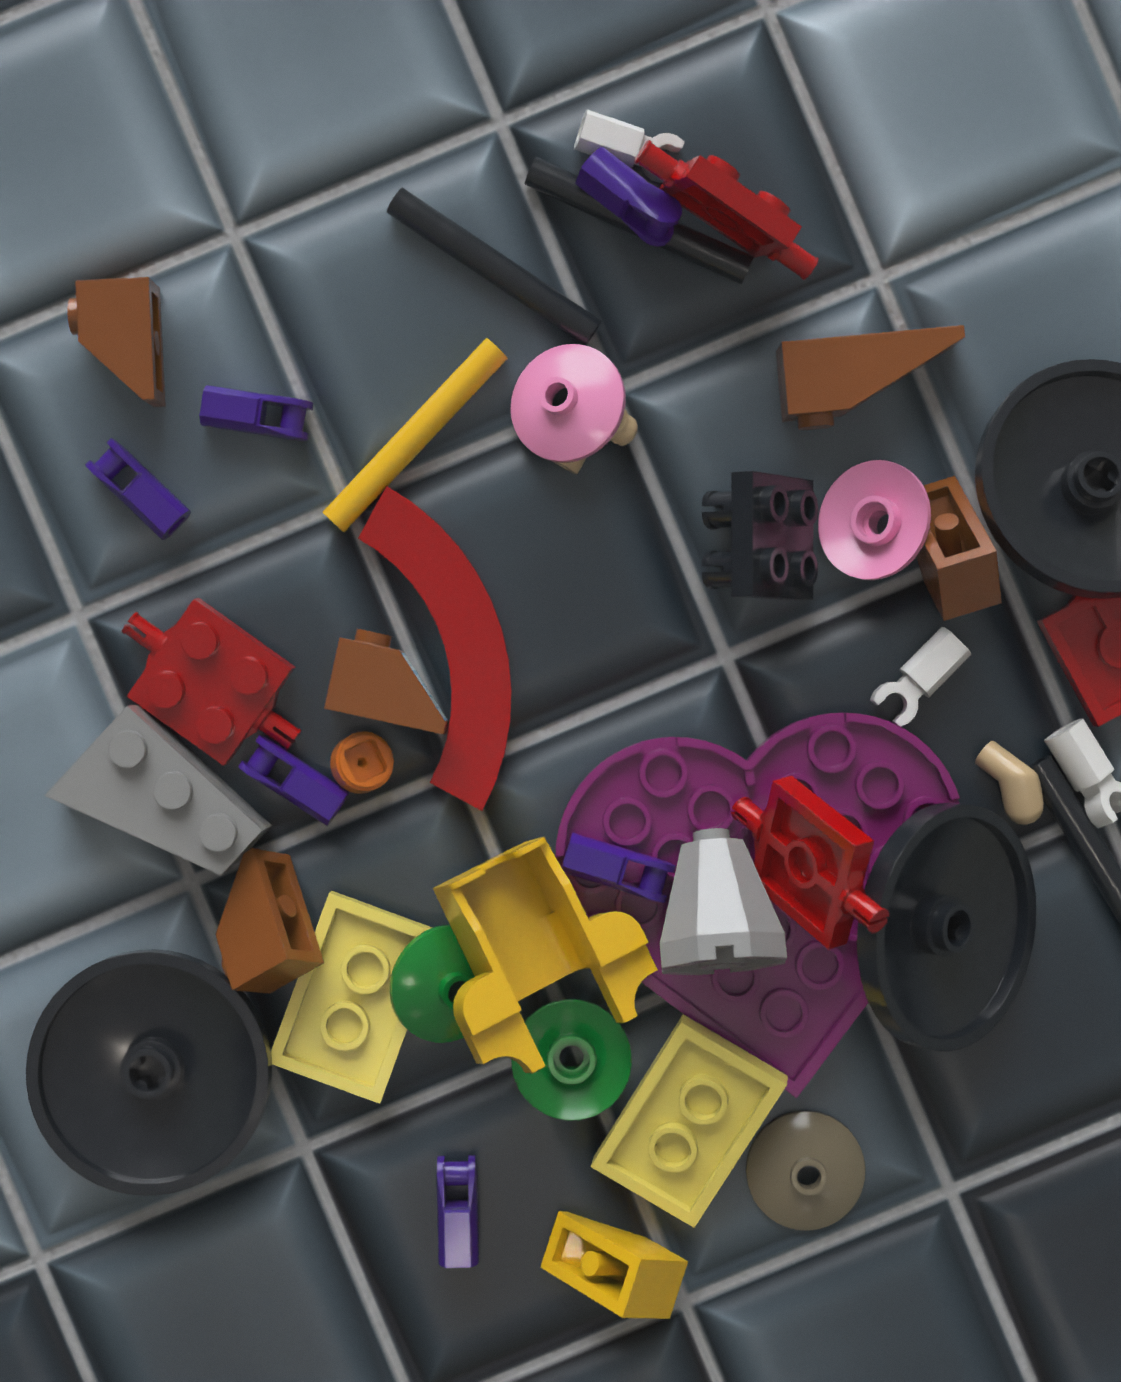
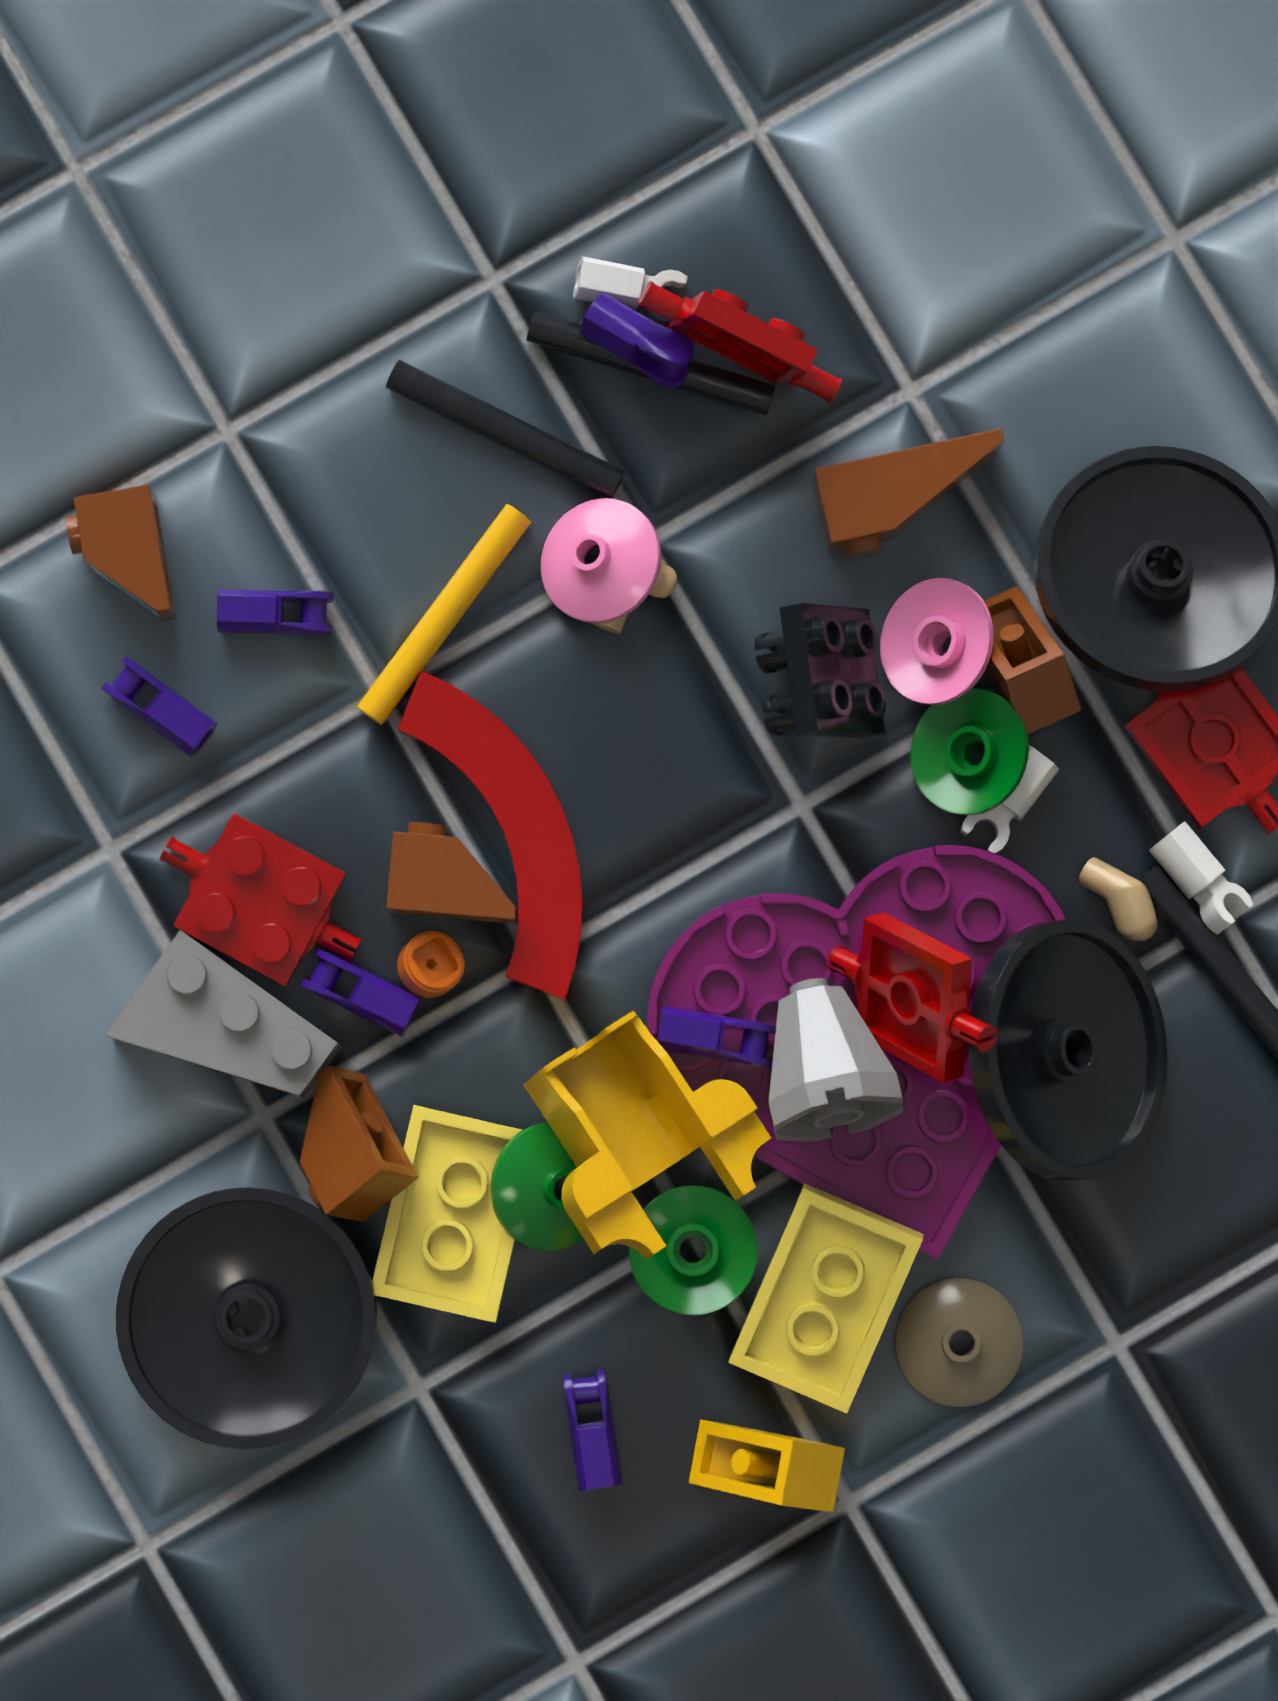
camera: 10 degrees left, 5 degrees down
(865, 626) = (945, 748): none -> green dish

